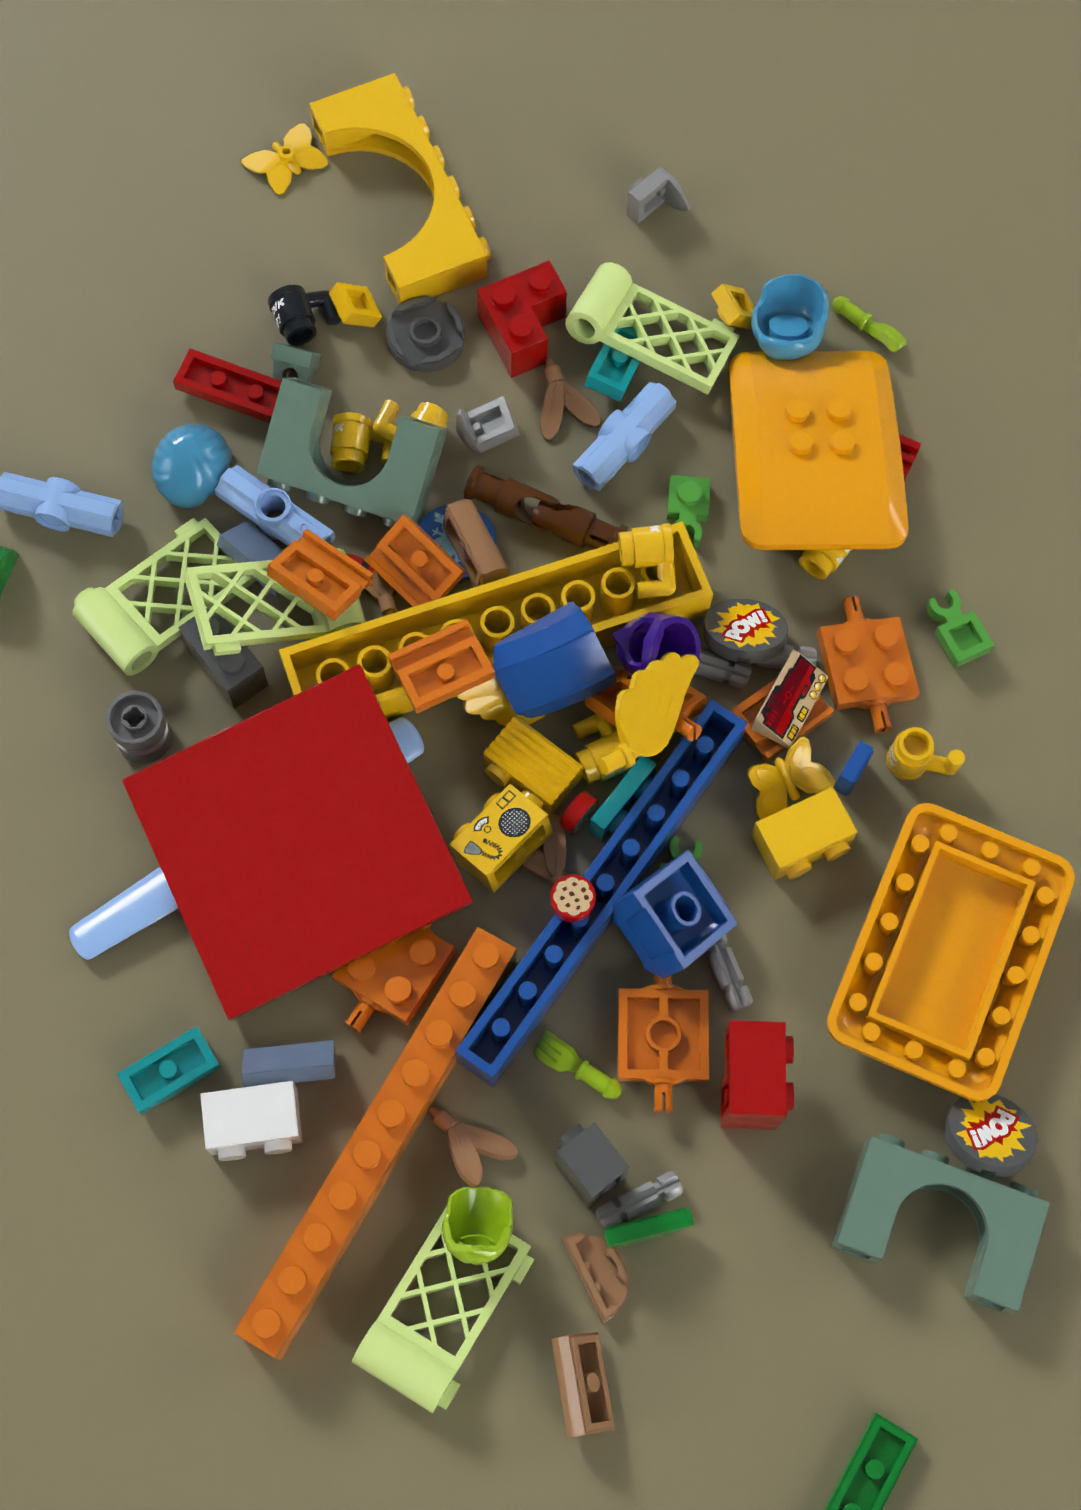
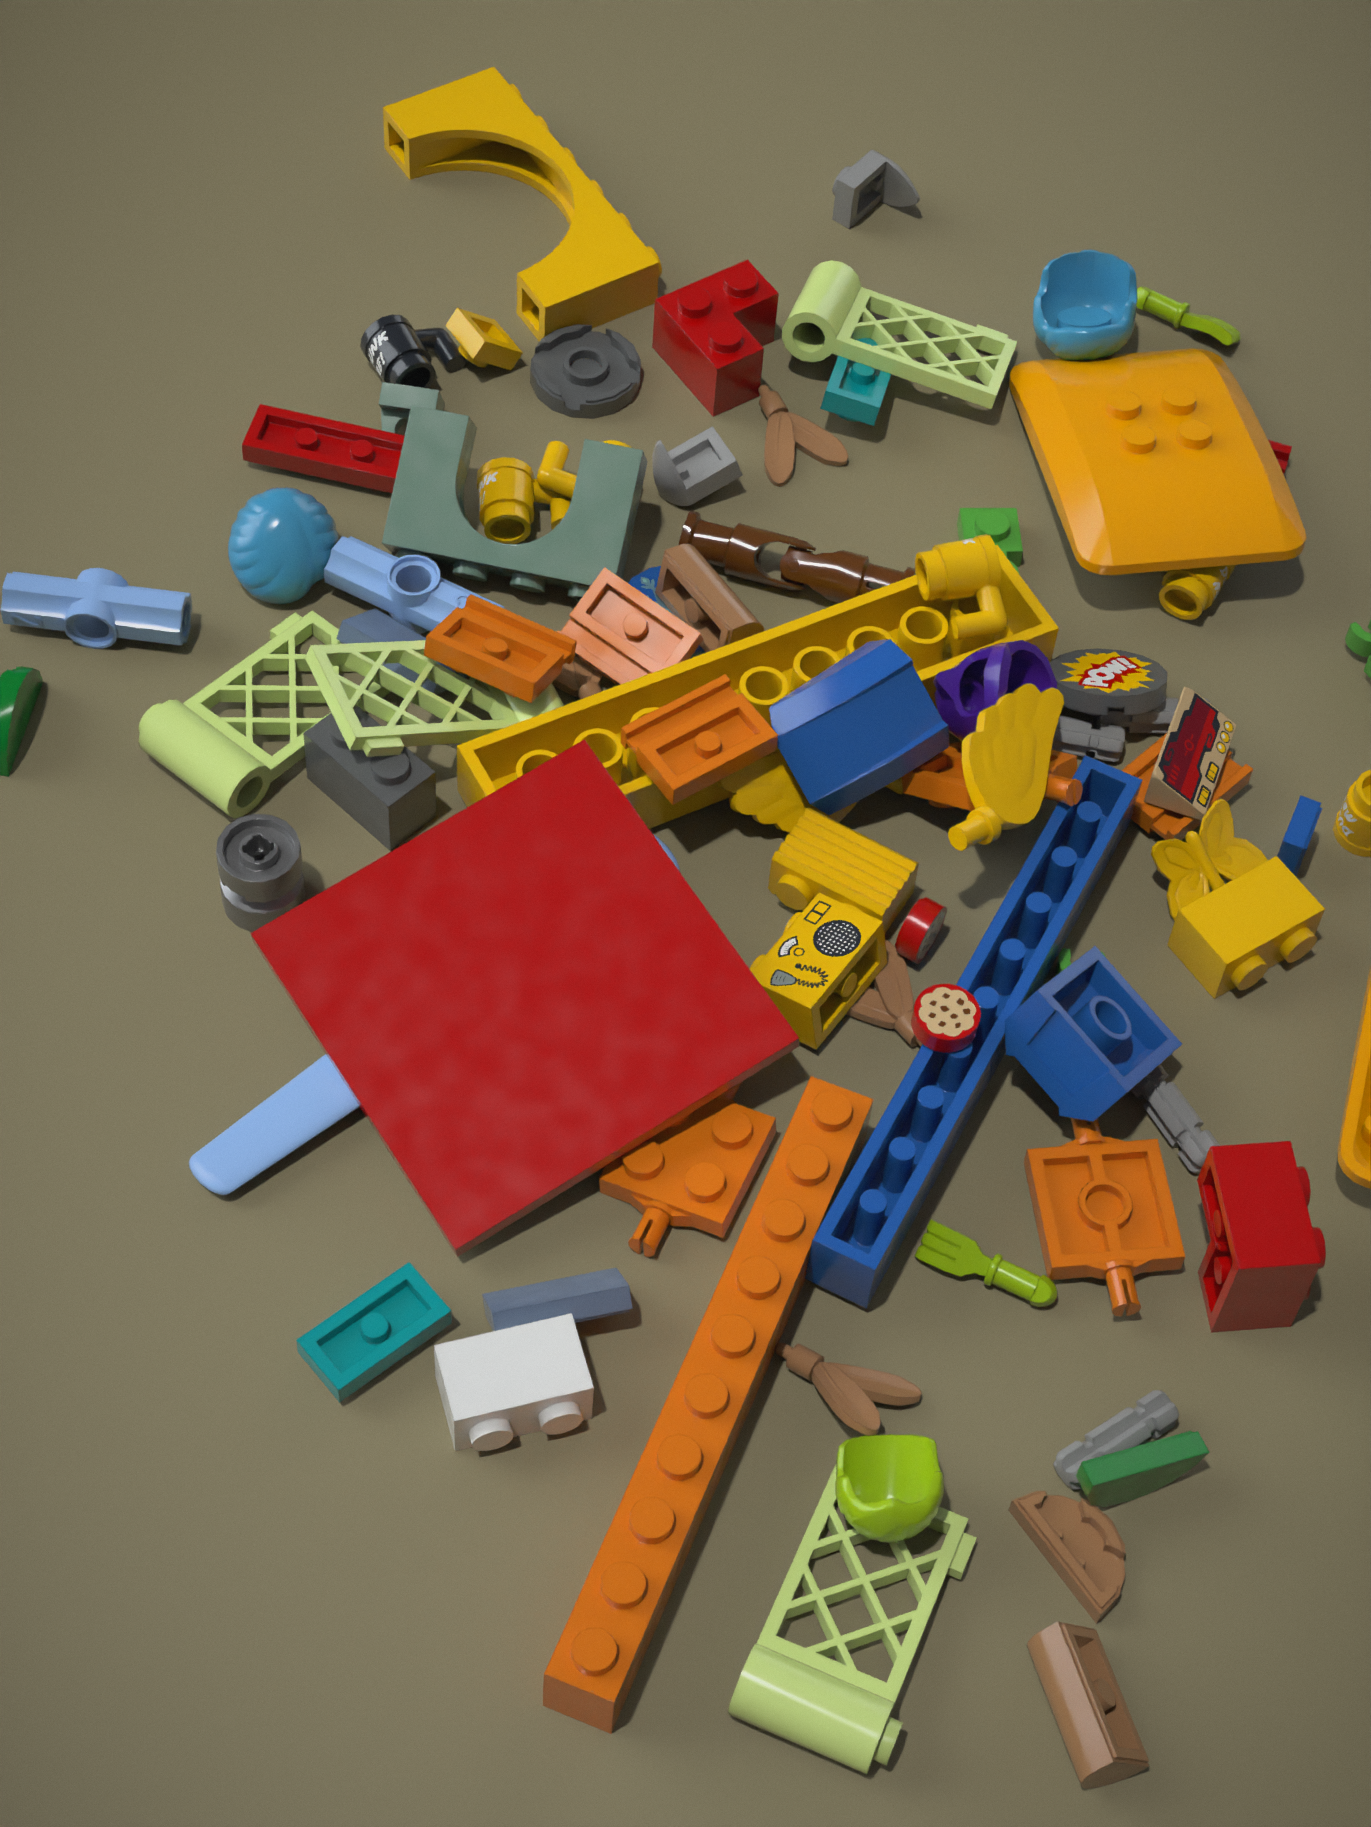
camera: 10 degrees left, 15 degrees down
(286, 159) = (352, 186): yellow piece -> none
(590, 1163) = (1041, 1379): dark grey brick -> none
(595, 750) = (939, 862): yellow piece -> none
(615, 807) = (978, 906): teal plate -> none
(624, 436) = (886, 467): light blue piece -> none
(733, 306) = (1003, 306): yellow plate -> none
(867, 663) = (1283, 714): orange plate -> none

